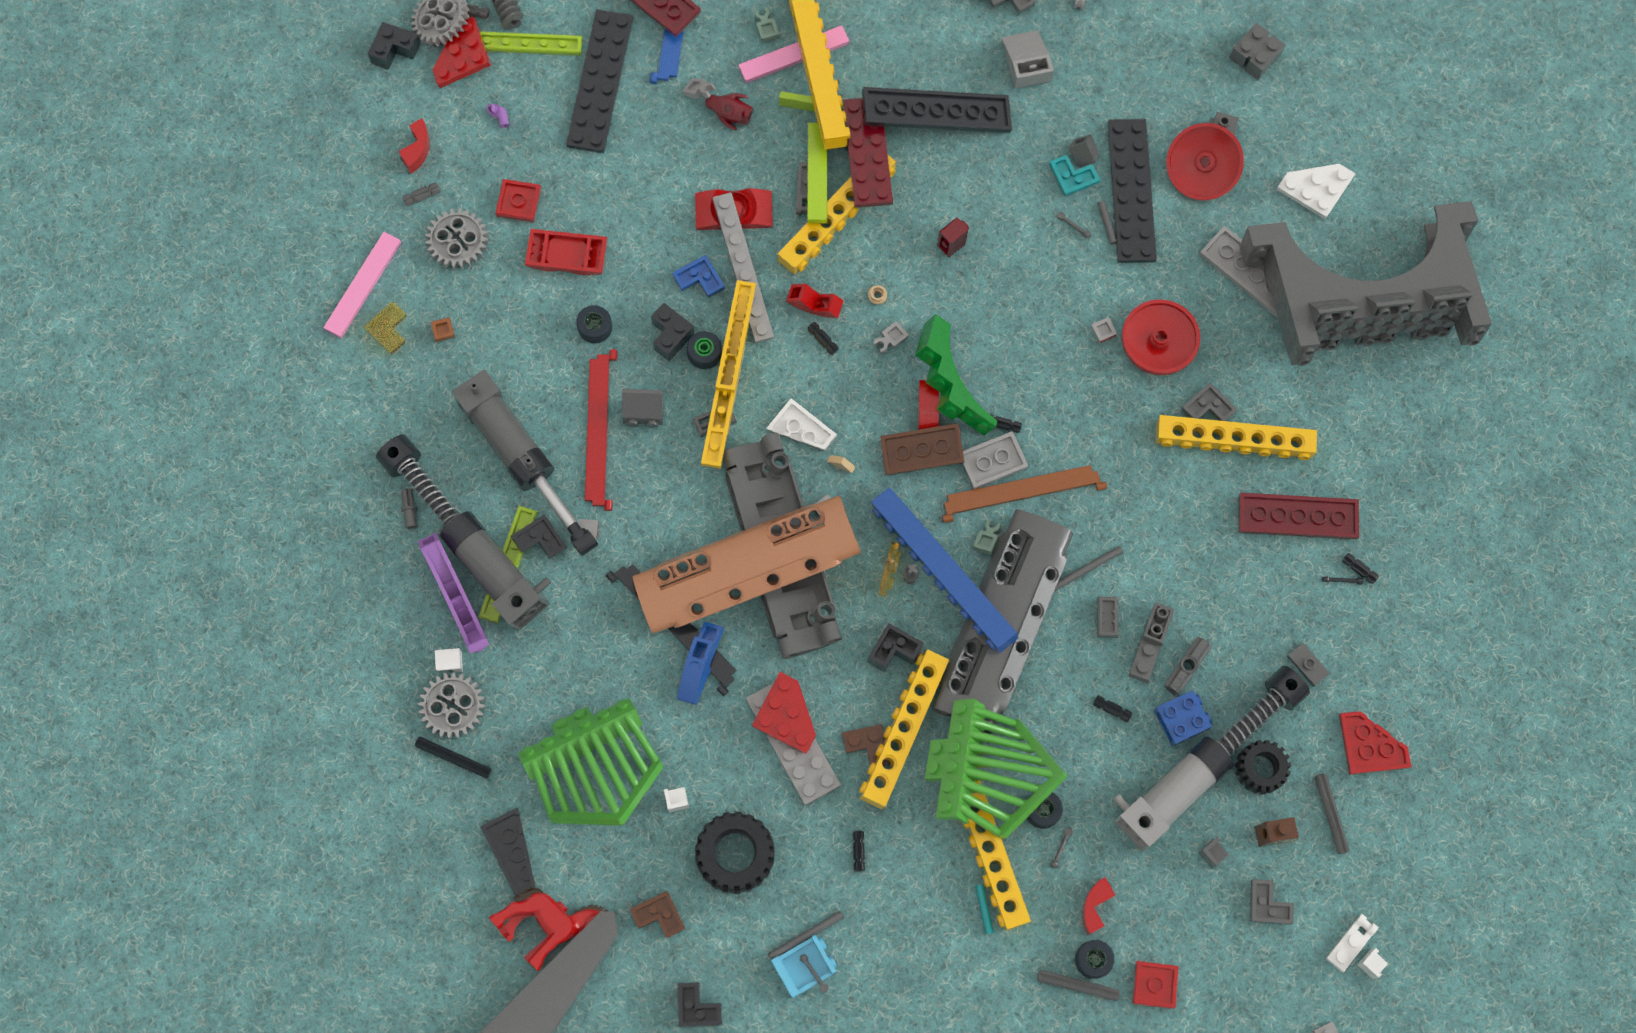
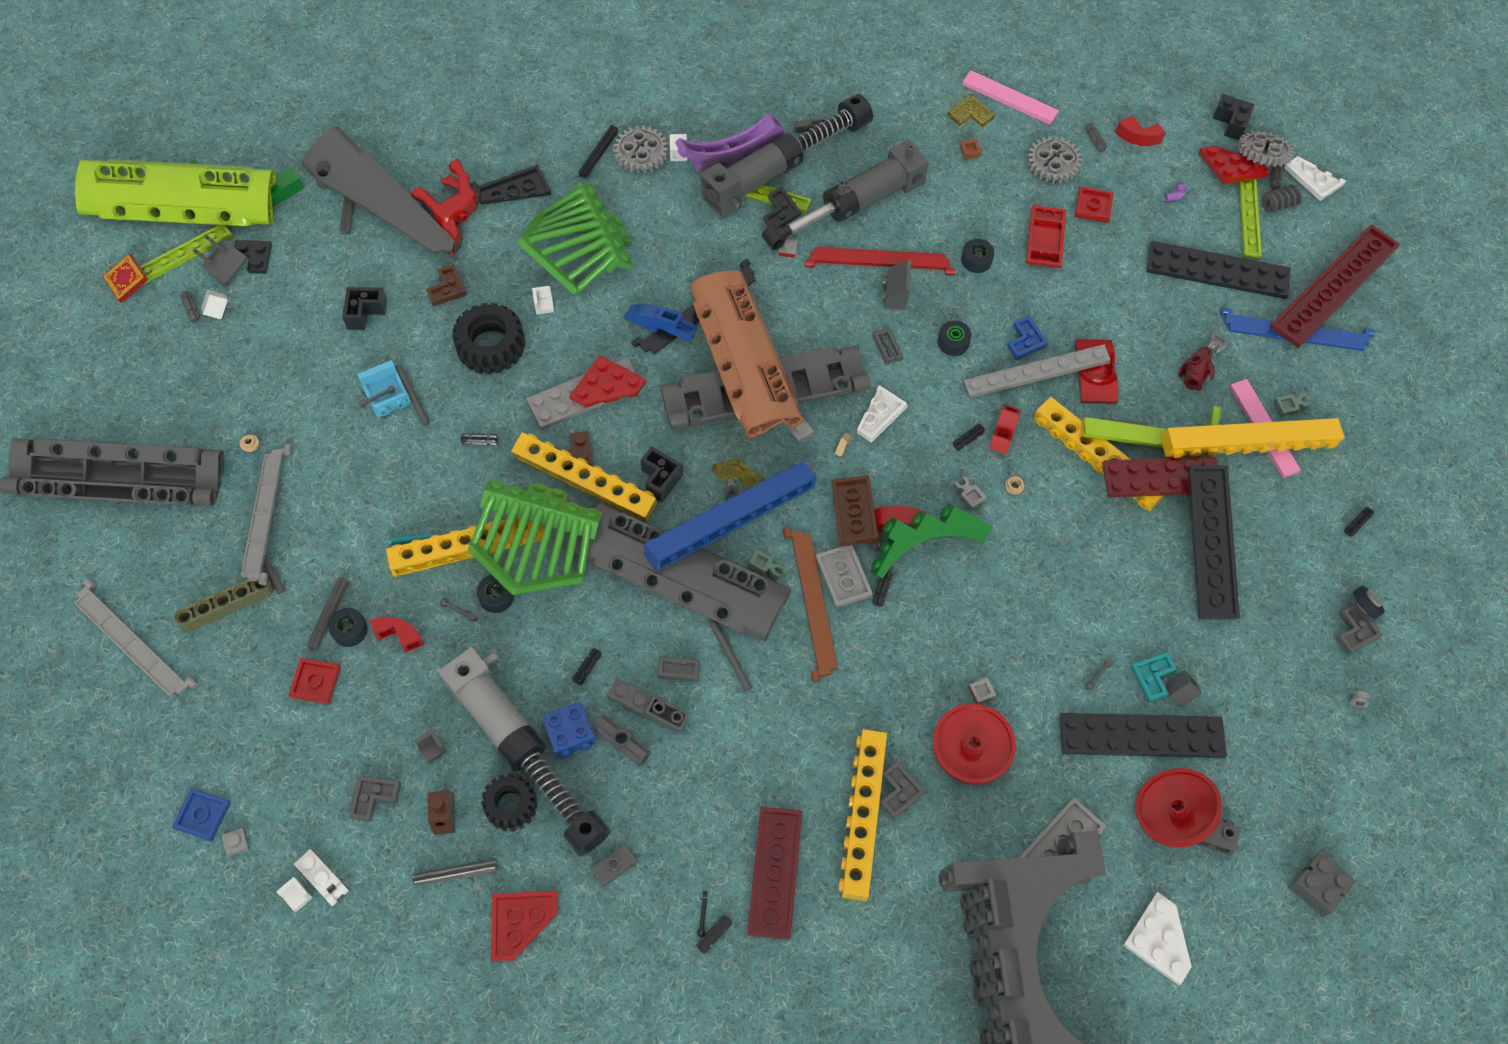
camera: 95 degrees right, 10 degrees down
(674, 329) = (970, 313): black brick -> none
(728, 374) = (930, 352): yellow slope -> none
(953, 237) = (1076, 550): dark red brick -> none
(1027, 59) = (1283, 638): light grey slope -> none
(1107, 222) = (1105, 706): dark grey piece -> none

